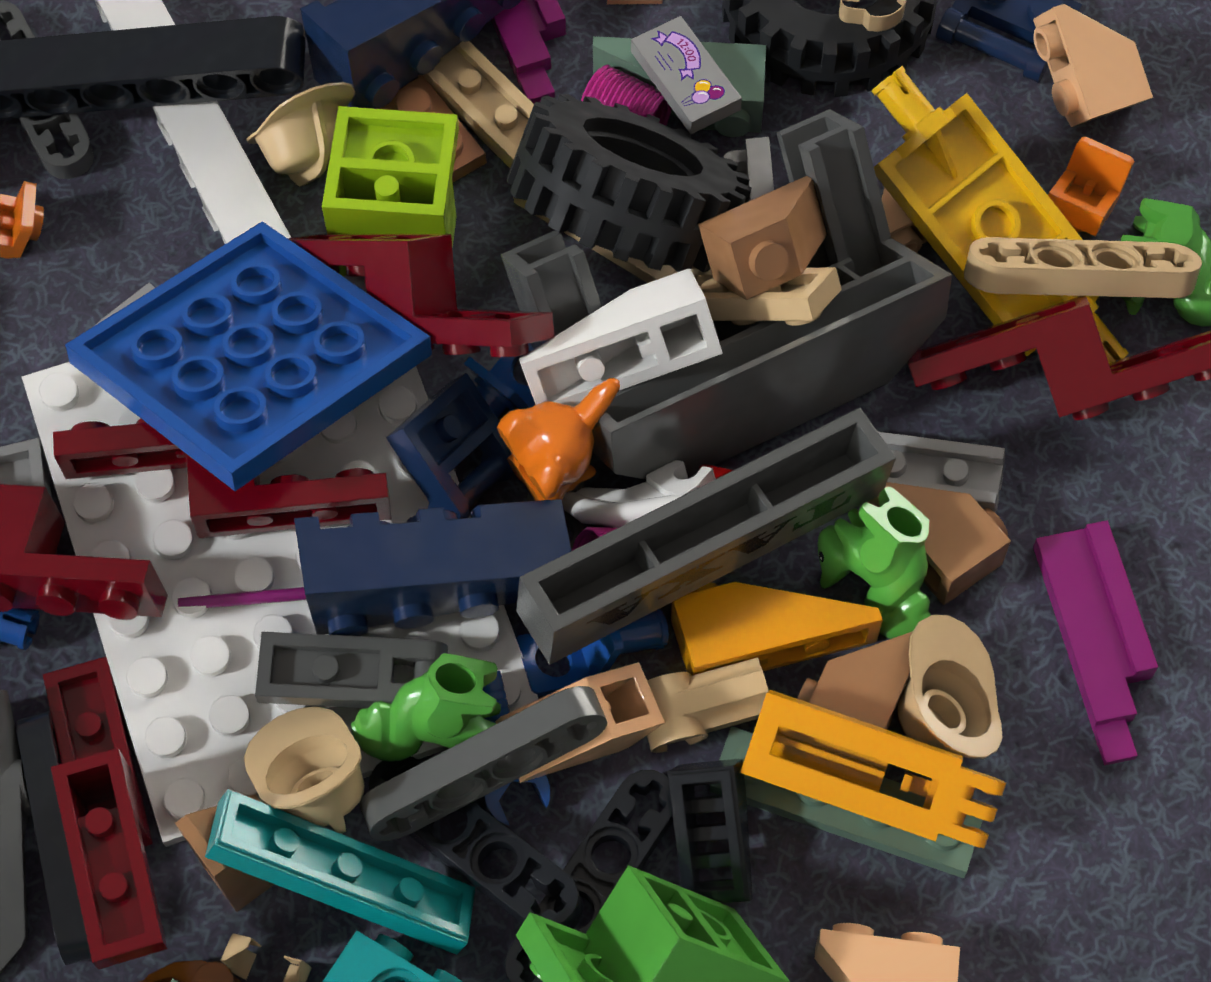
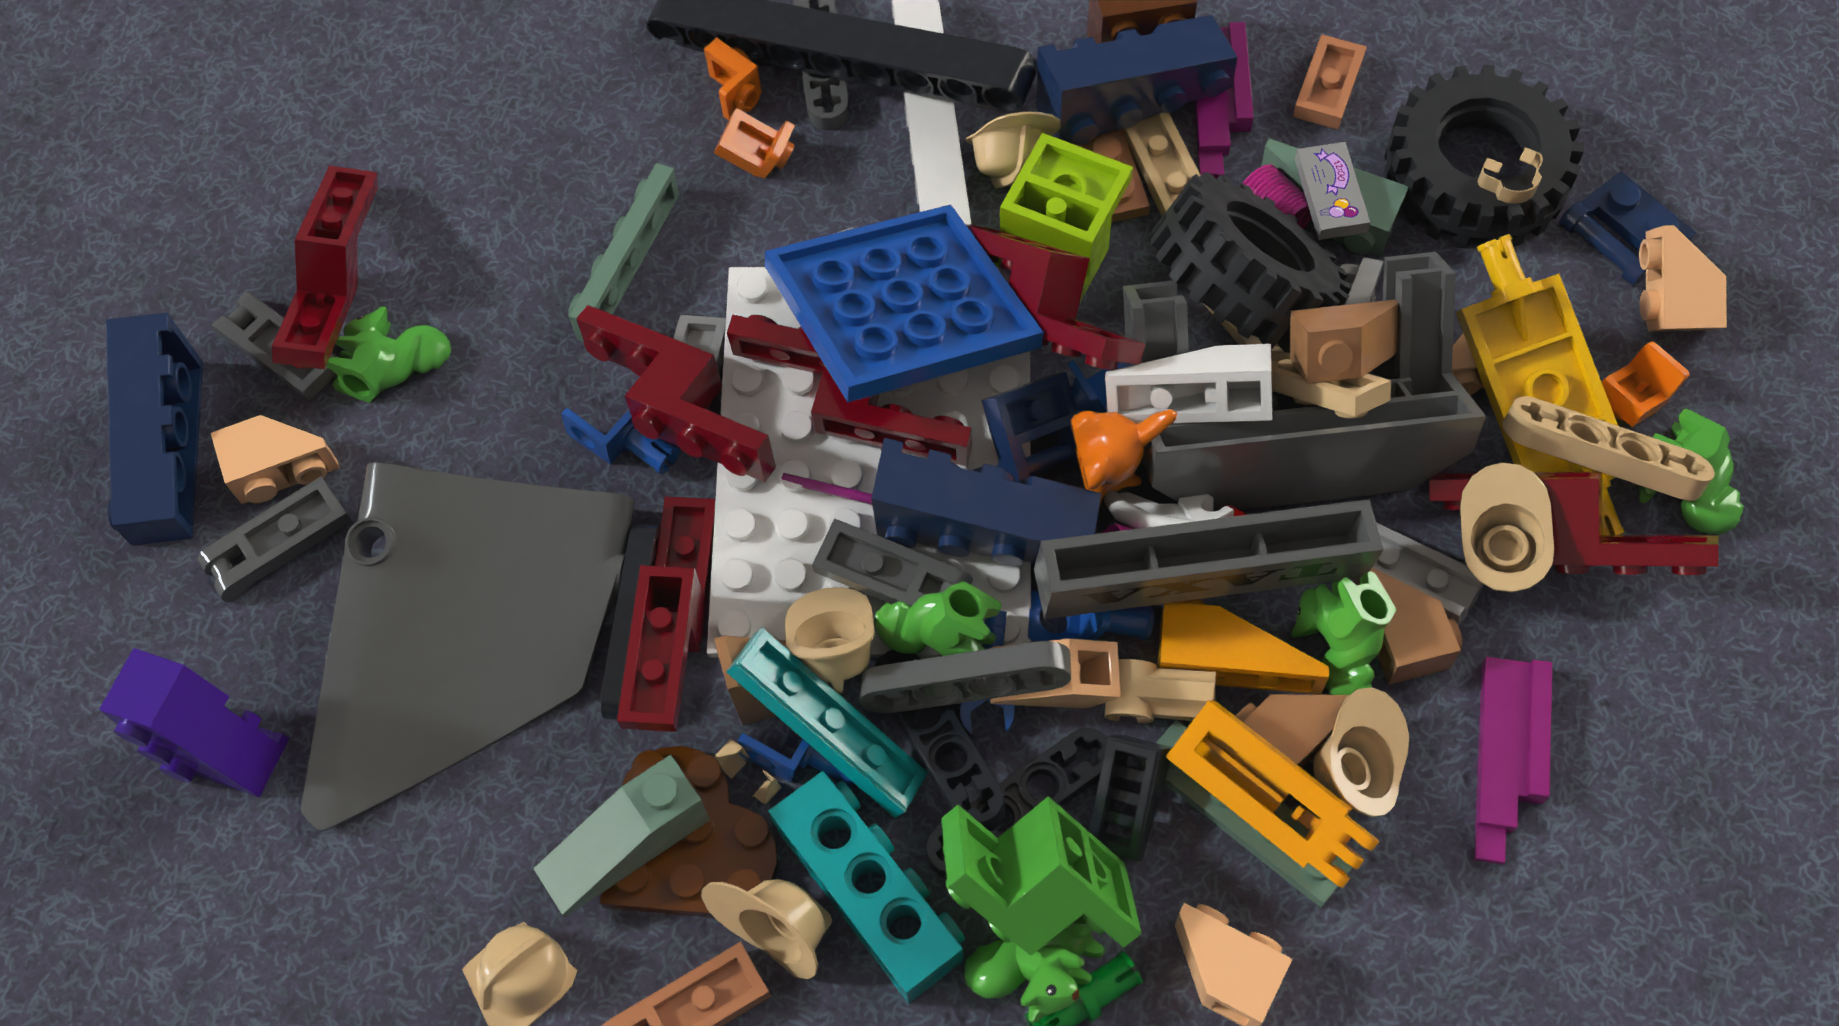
camera: 25 degrees right, 0 degrees up
(309, 943) = (785, 767): none -> blue bracket
(1011, 389) = (1507, 527): none -> tan piece

